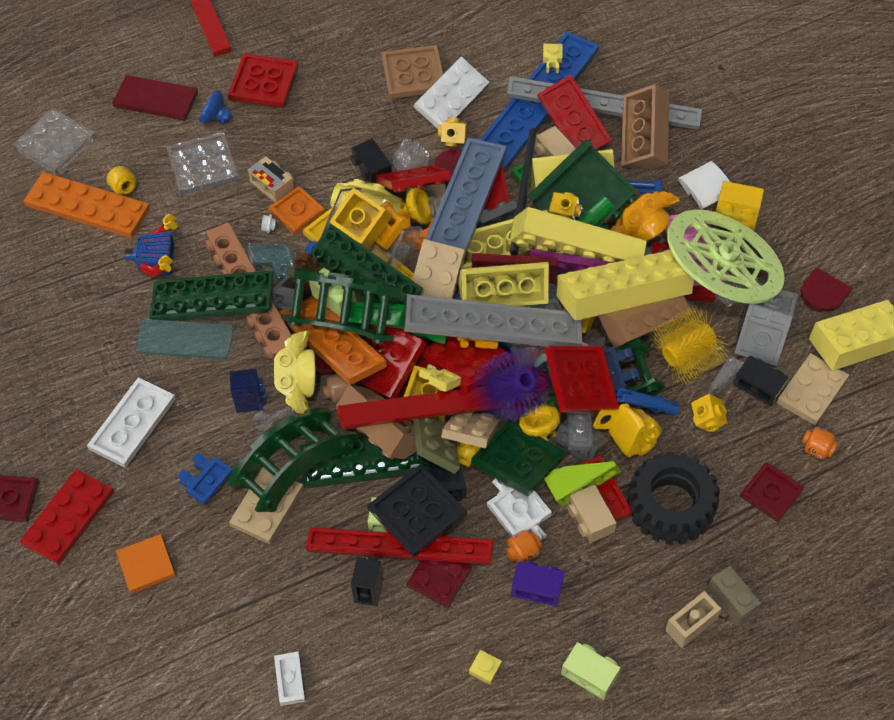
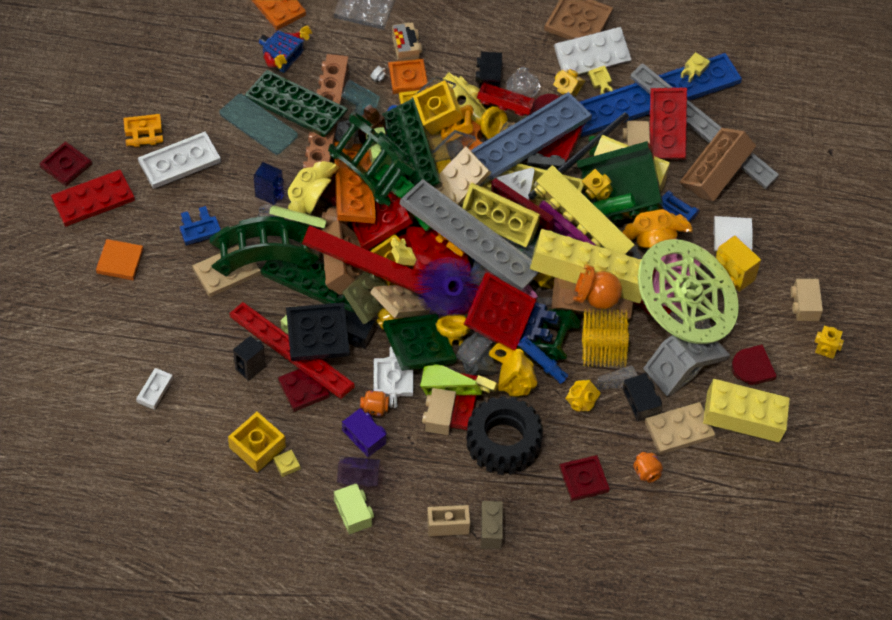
camera: 30 degrees right, 0 degrees up
(65, 410) = (140, 126): none -> light orange plate
(305, 405) = (297, 216): none -> yellowish green tile
(442, 665) = (257, 441): none -> yellow brick
(478, 113) = (600, 79): none -> light yellow plate
(489, 244) = (519, 181): none -> white piece
(567, 627) = (358, 470): none -> clear purple brick
(619, 458) = (486, 385): none -> light yellow plate
(655, 300) = (599, 288): none -> orange tile
(818, 204) = (807, 300): none -> tan brick
(869, 230) = (828, 341): none -> yellow brick

